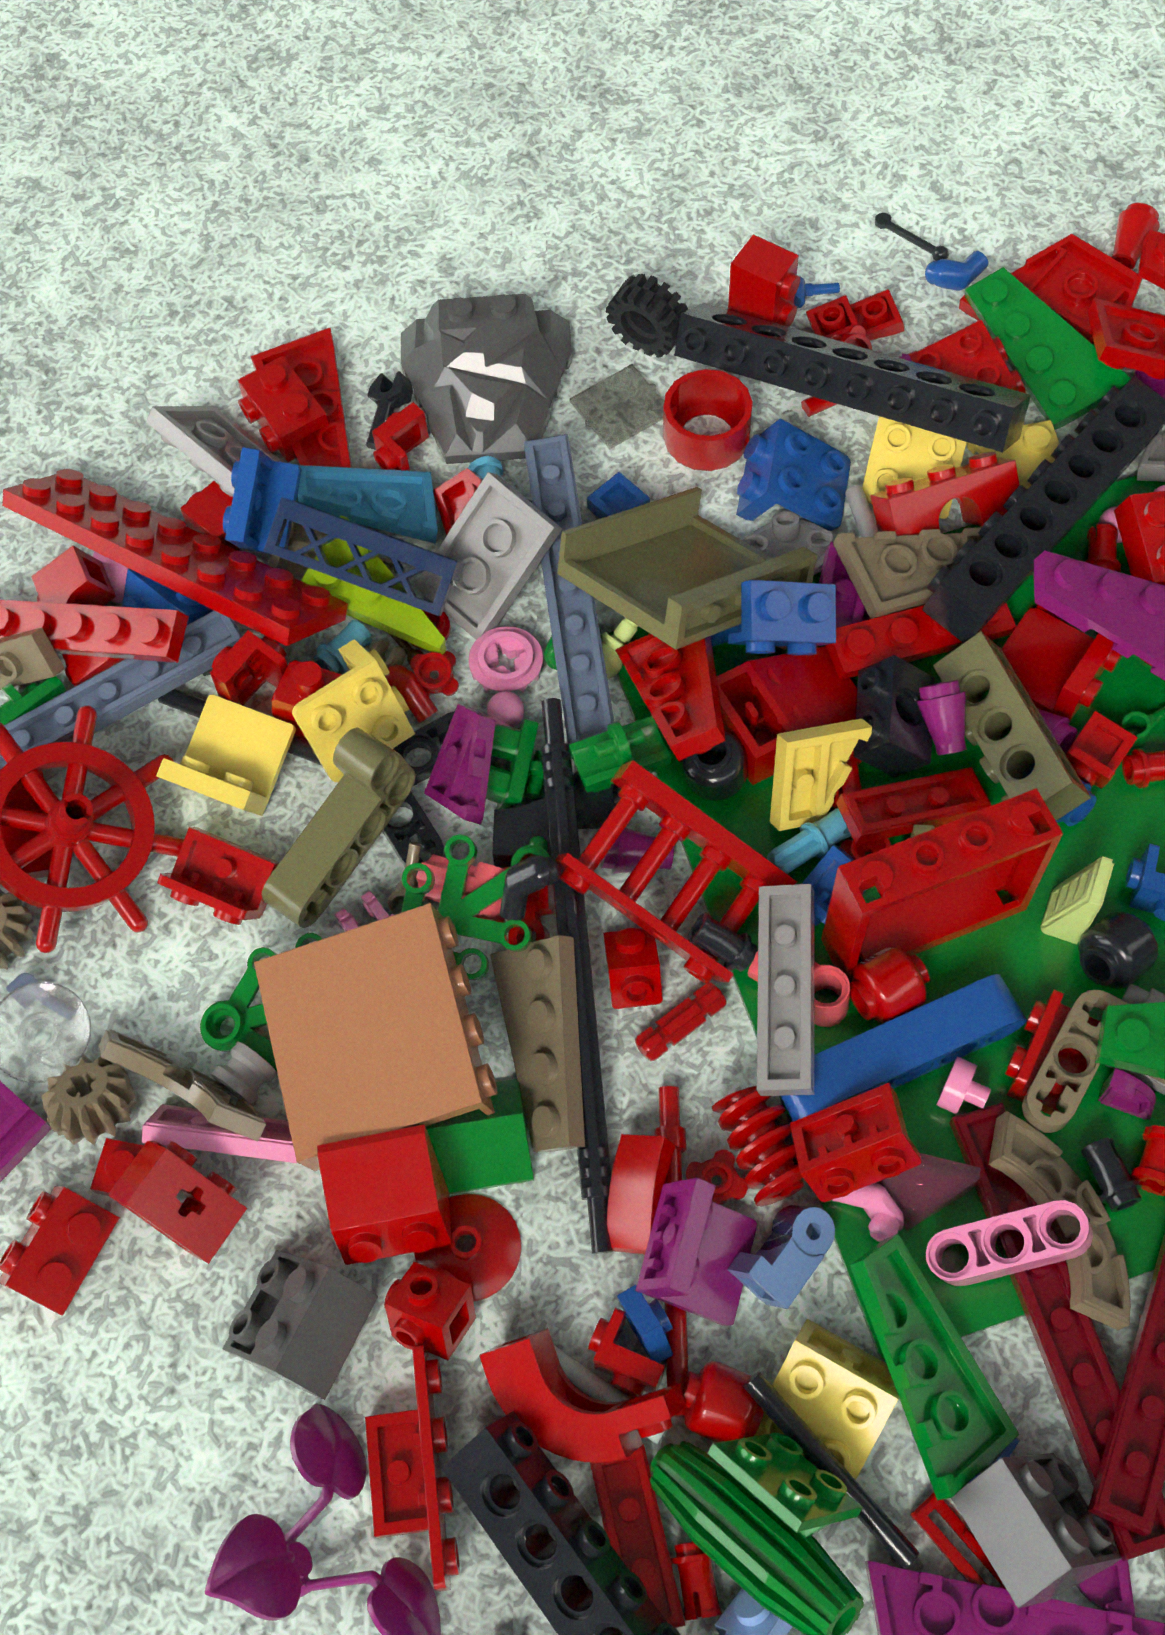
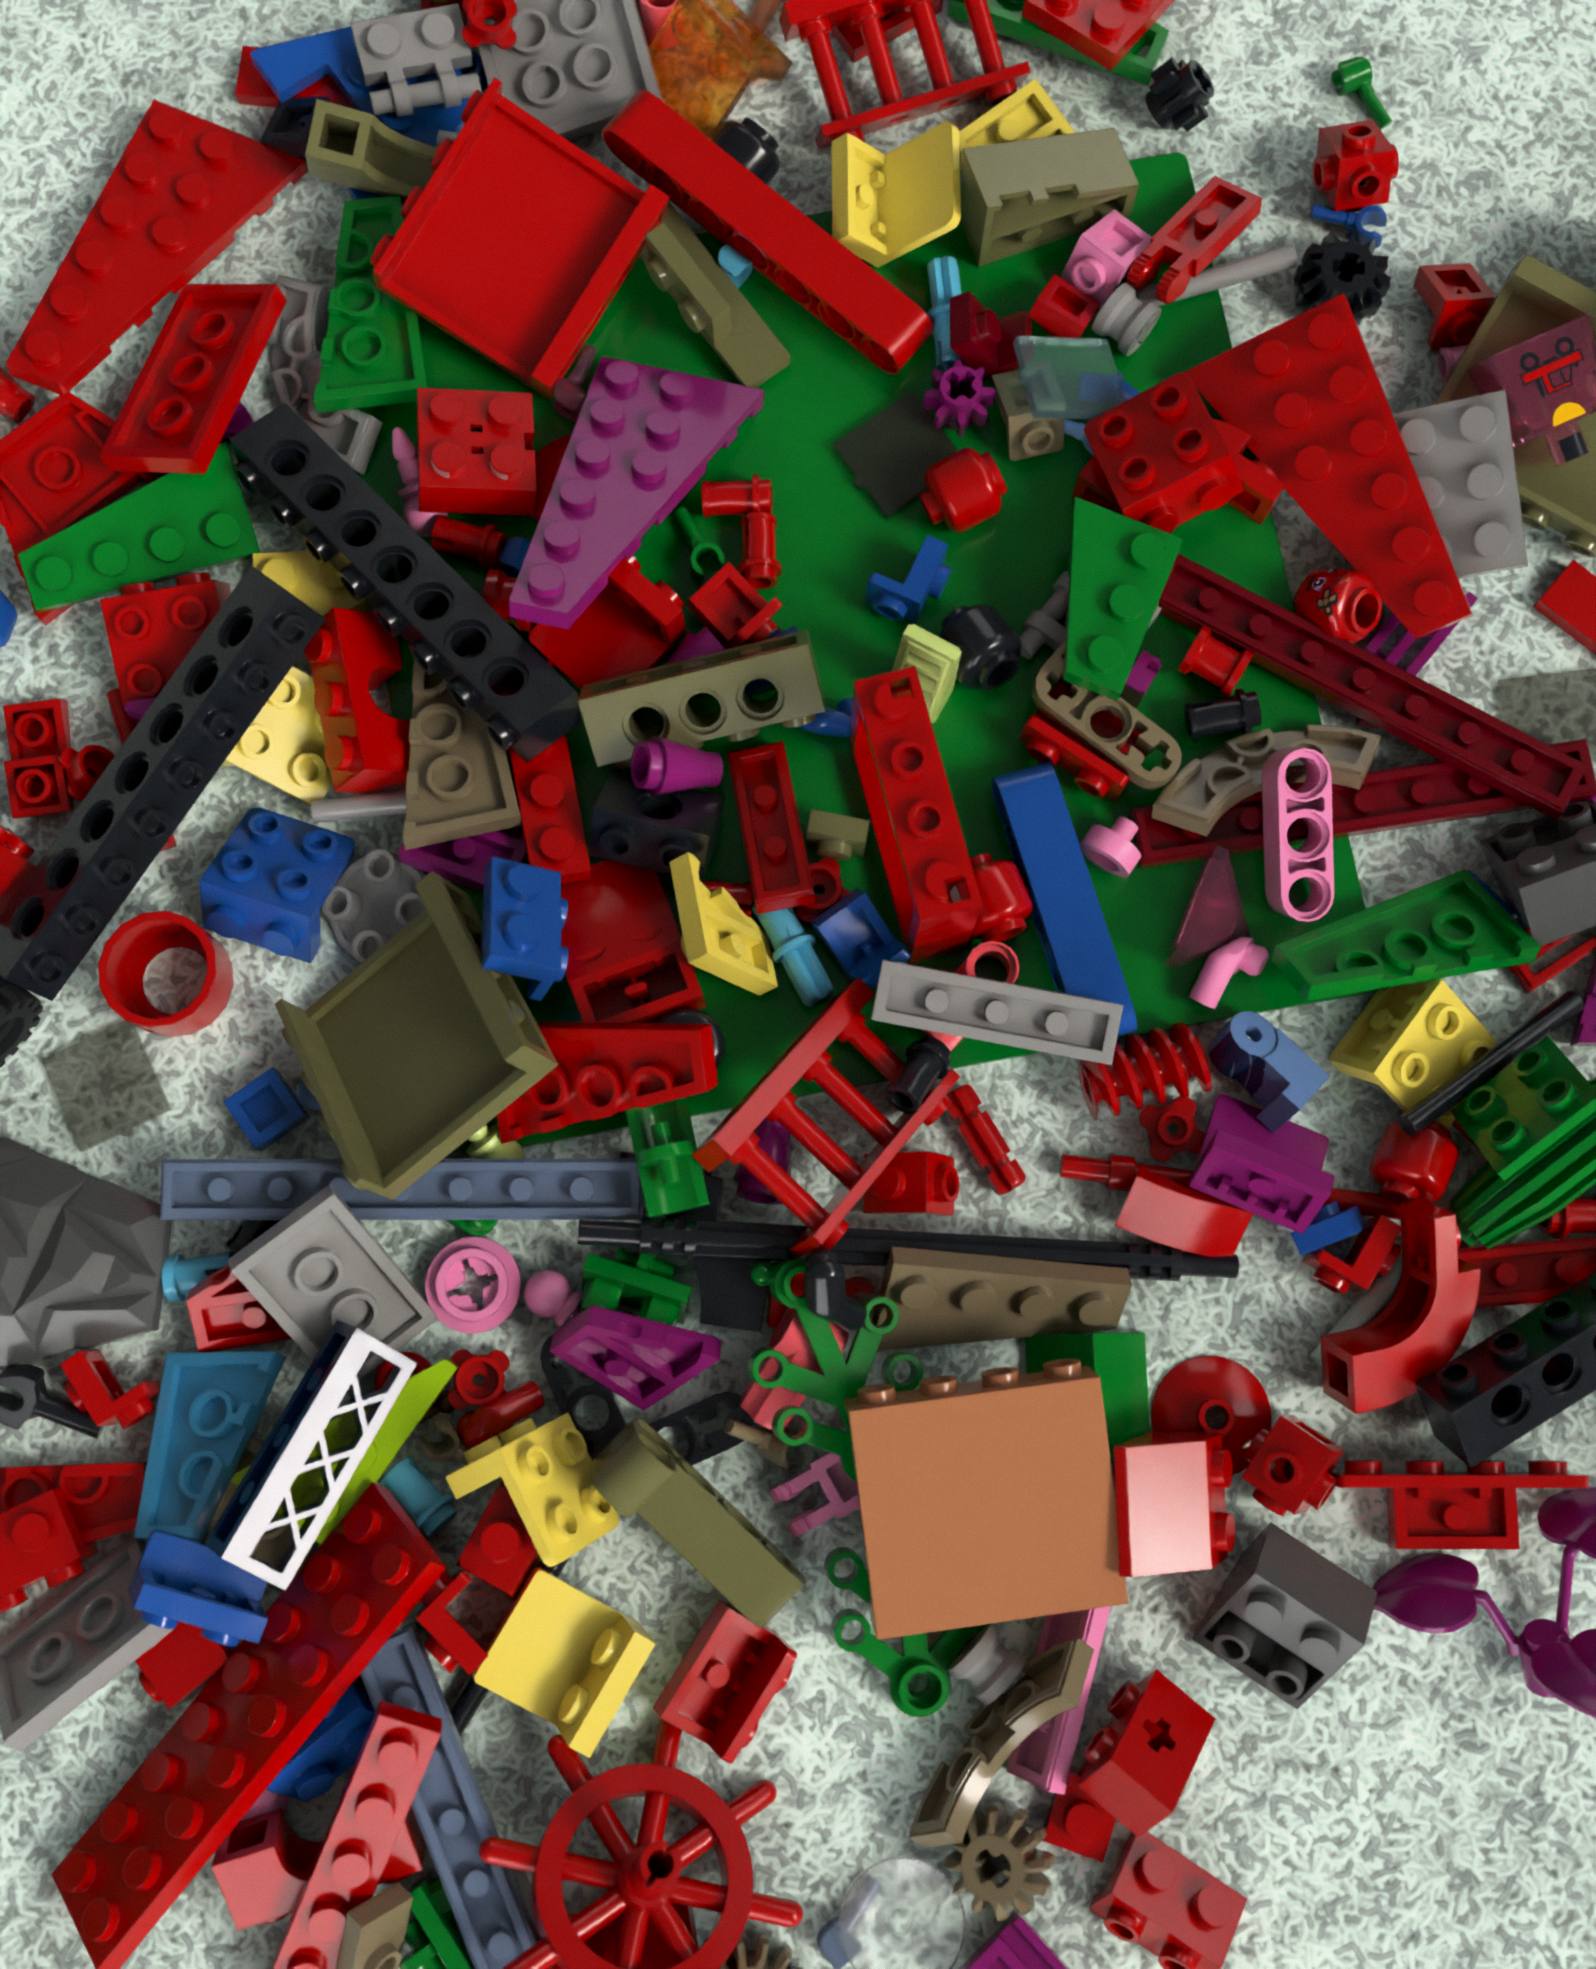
camera: 85 degrees left, 15 degrees up
(854, 1144) = (1176, 972): red bracket -> none

